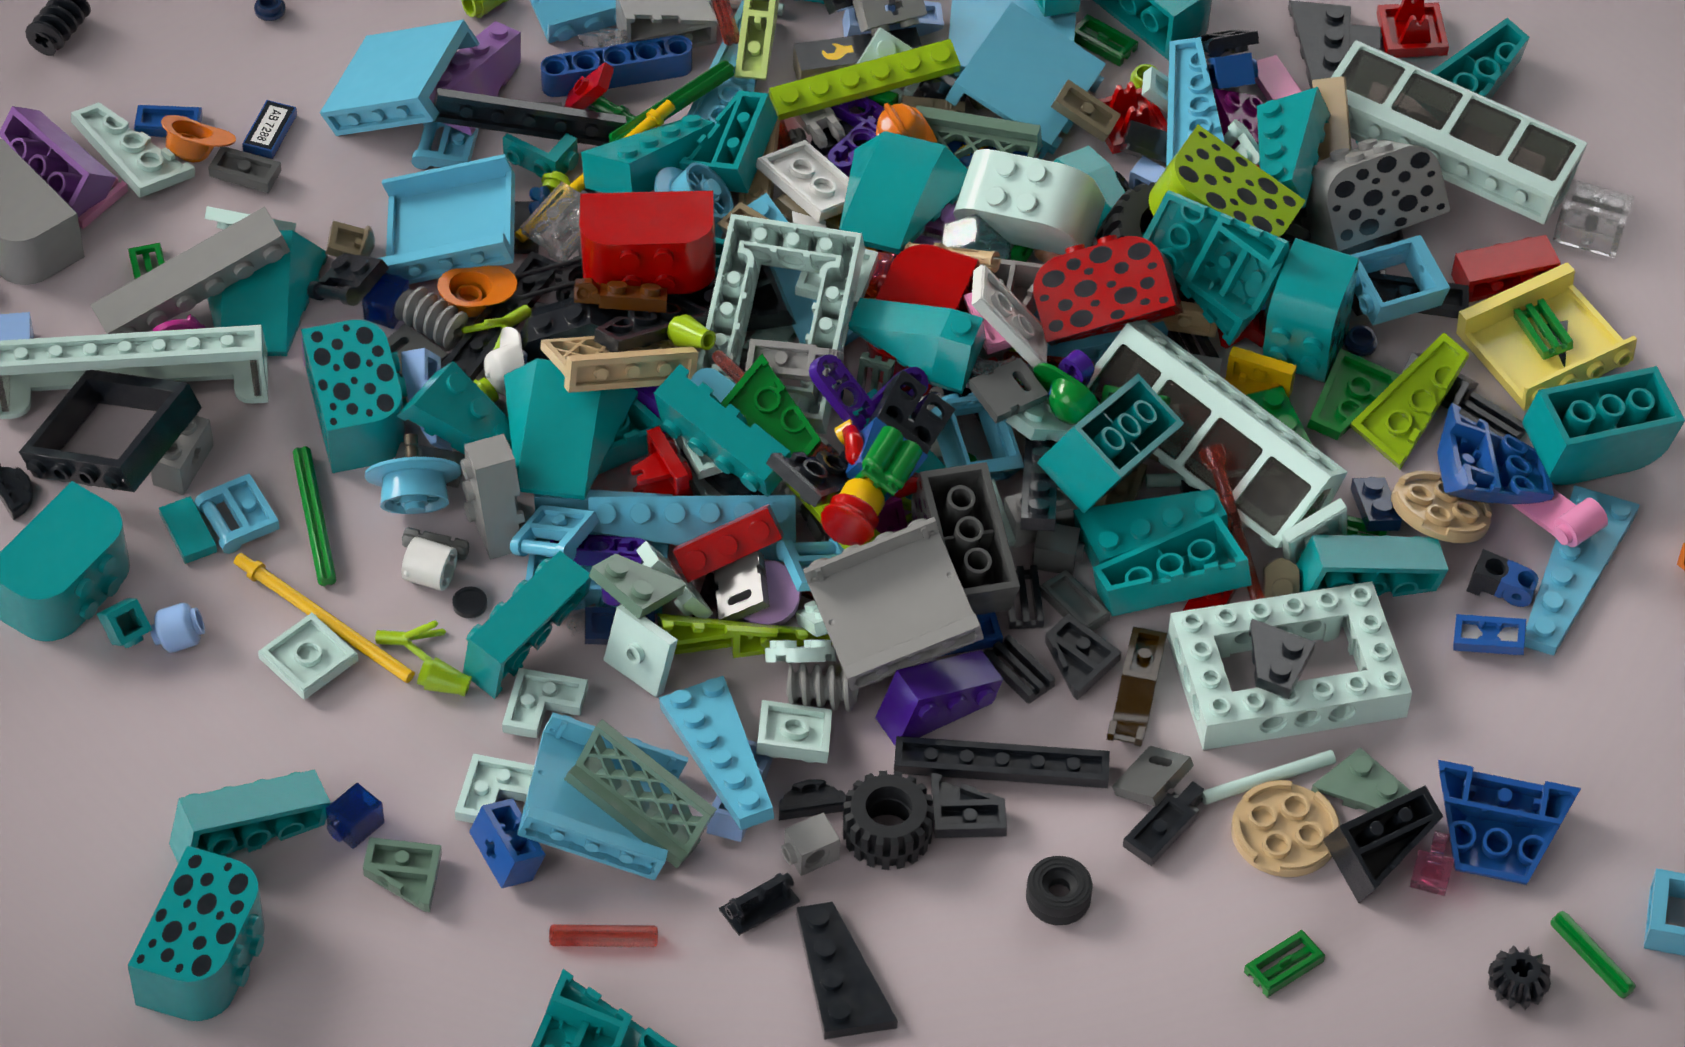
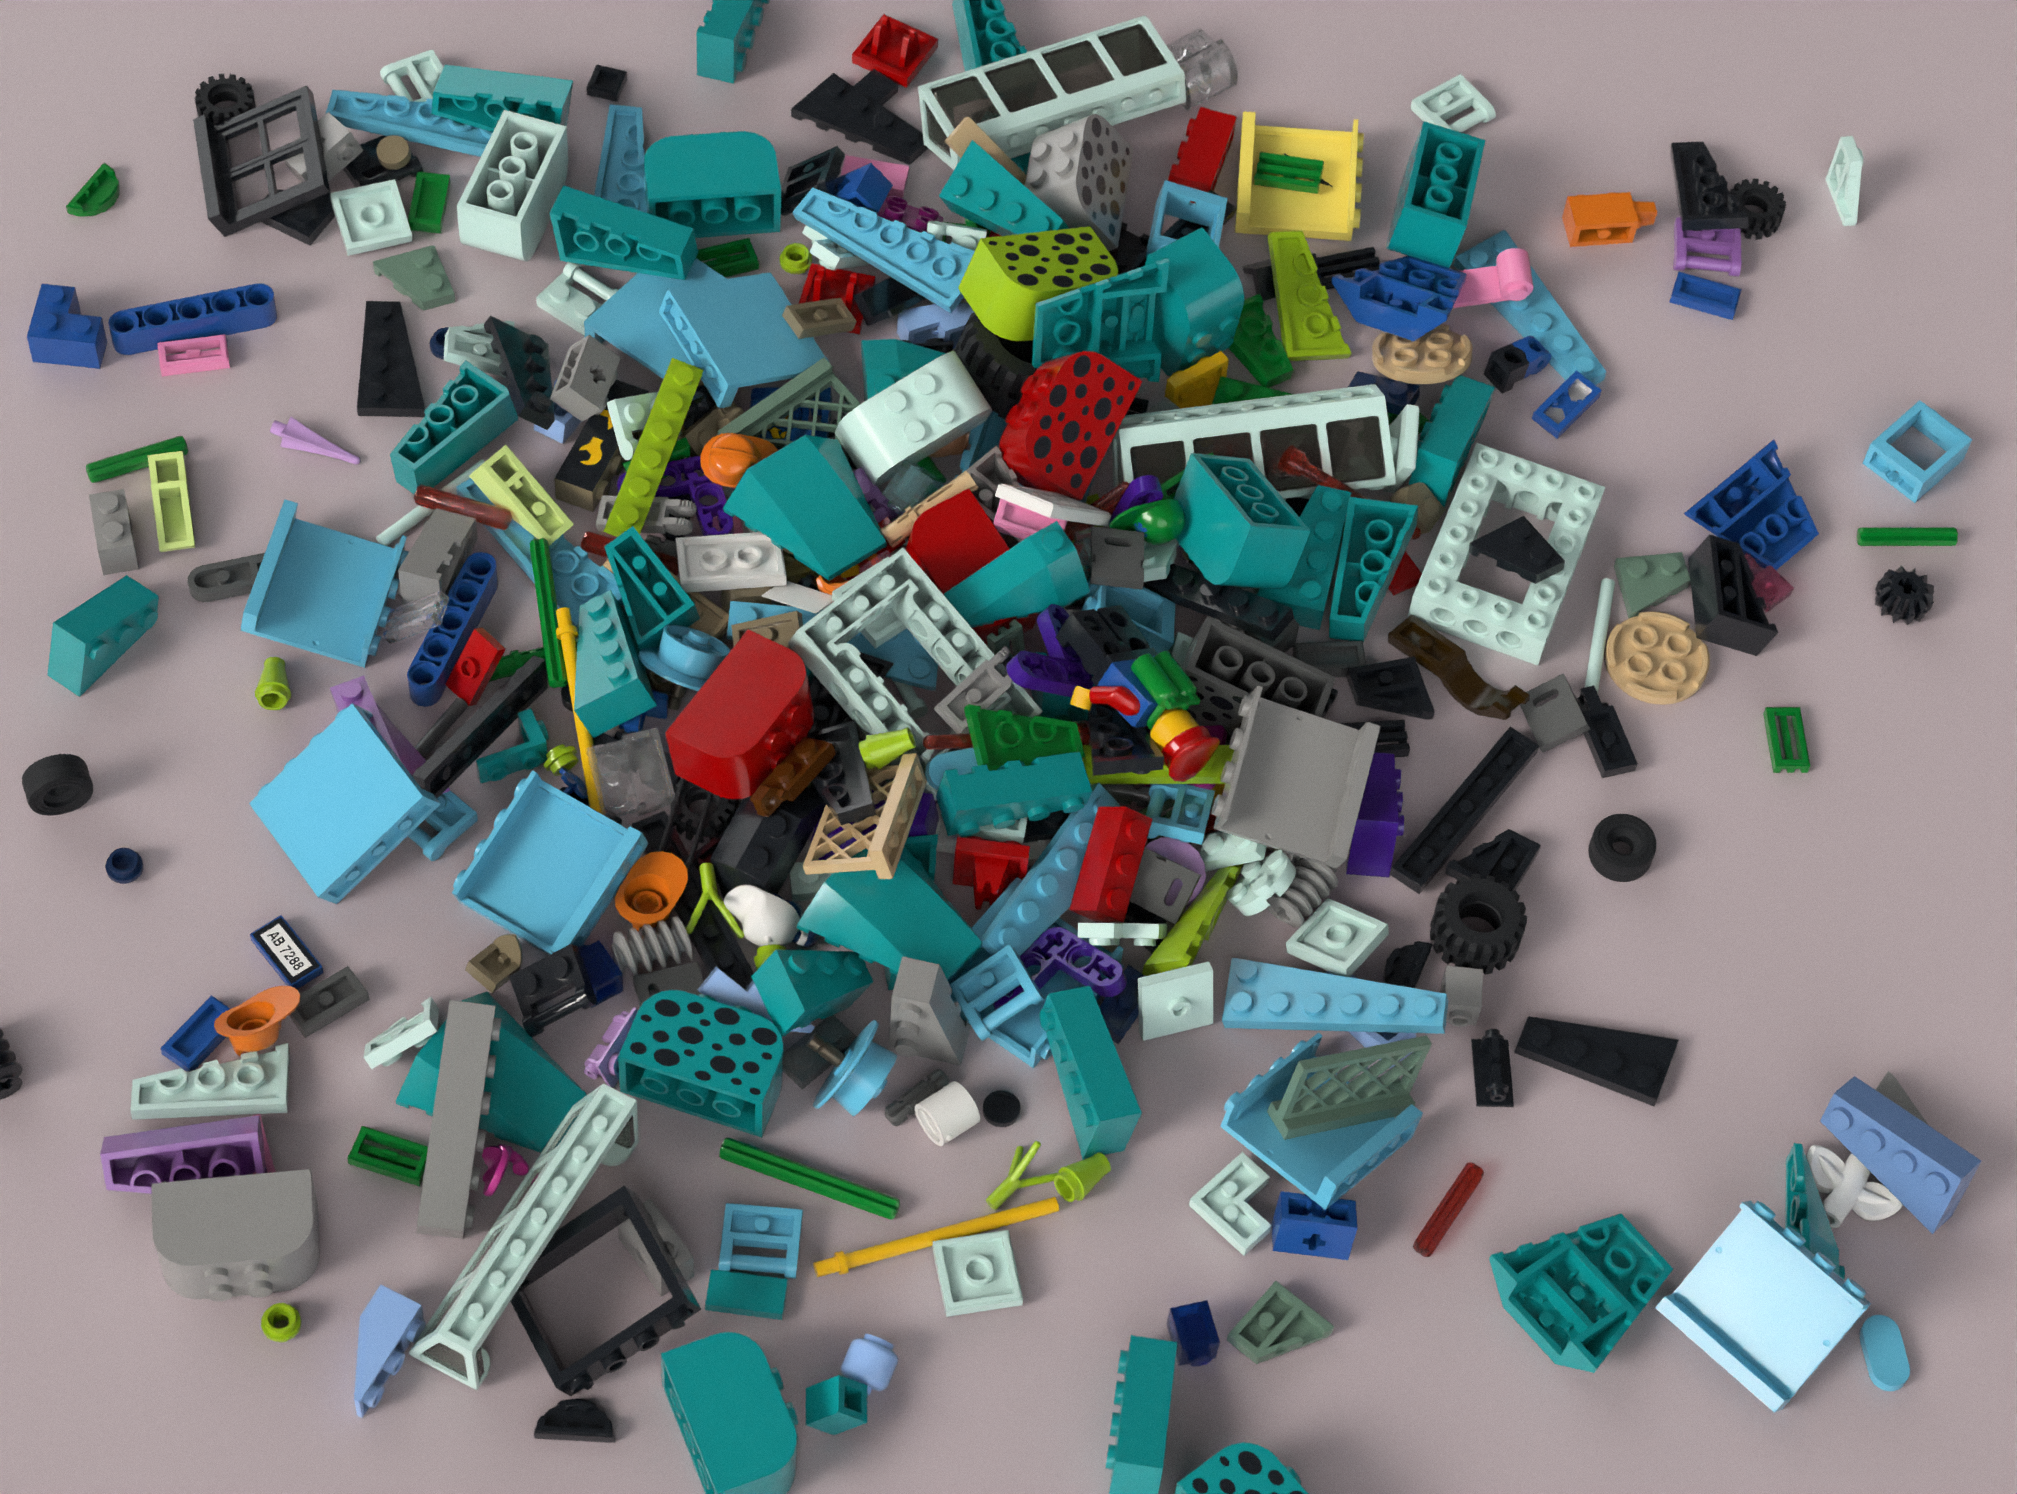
camera: 60 degrees left, 5 degrees up
(538, 692) = (1158, 1122): light aqua plate -> none
(636, 585) = (1127, 958): sand green wing -> none

